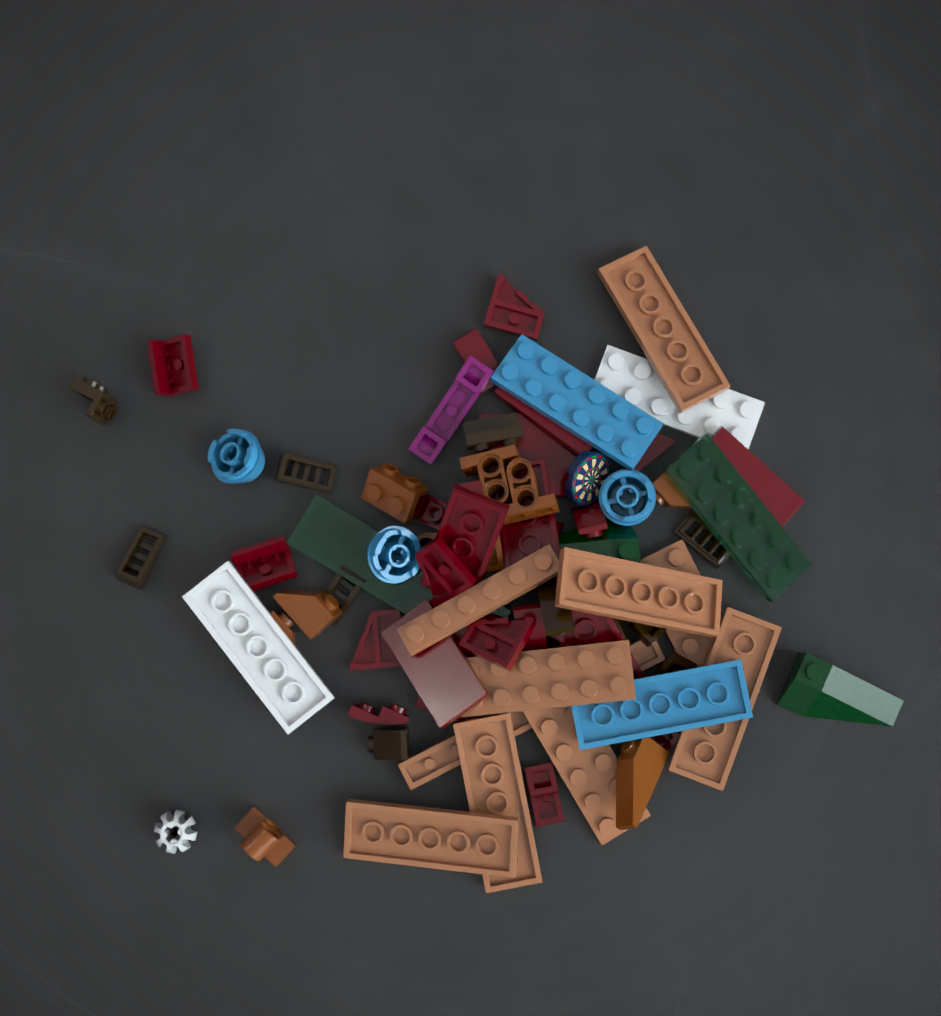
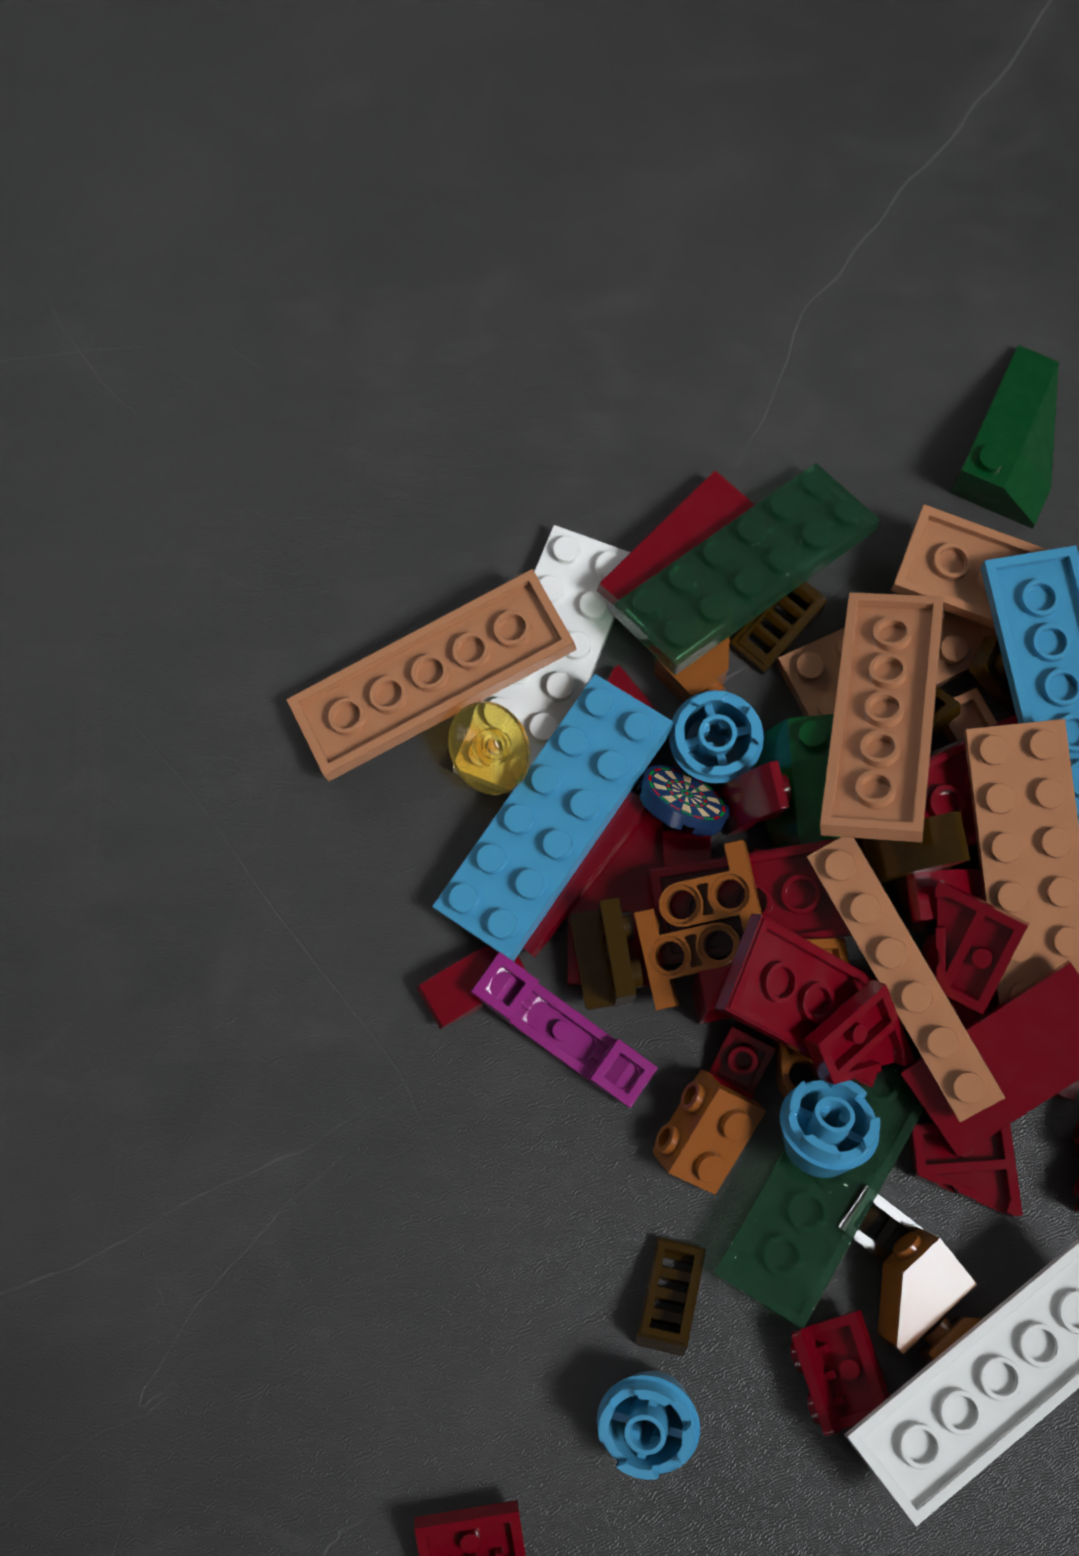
camera: 90 degrees left, 10 degrees down
(513, 312) = (390, 922): dark red wing -> none
(615, 362) = (475, 751): none -> clear yellow dish

